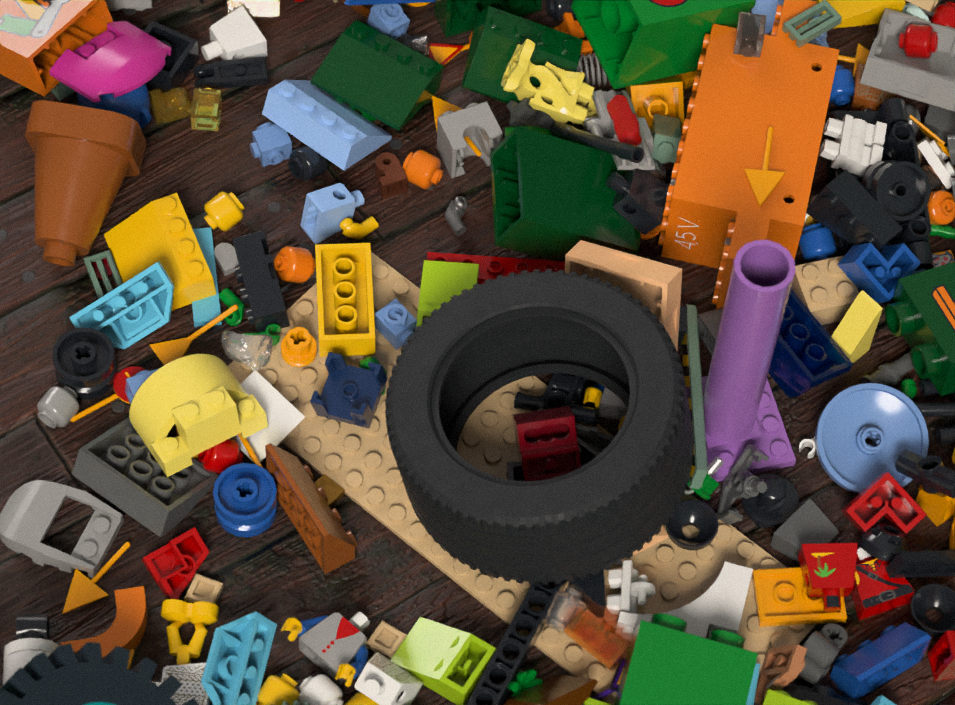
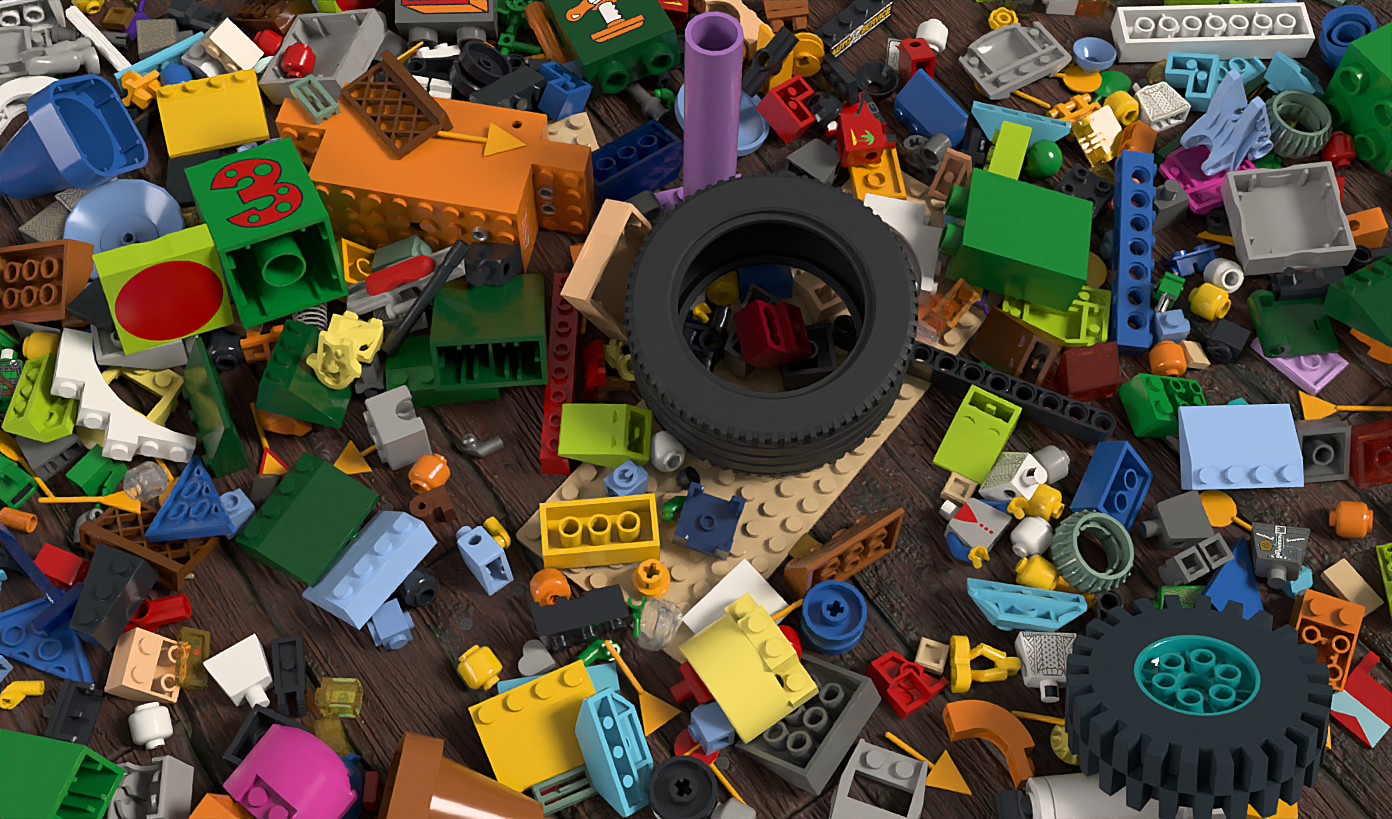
camera: 90 degrees left, 0 degrees up
(749, 34) = (330, 143): clear smoke brick -> none
(817, 102) = (415, 95): none -> reddish brown fence
(858, 327) = (617, 110): light yellow slope -> none

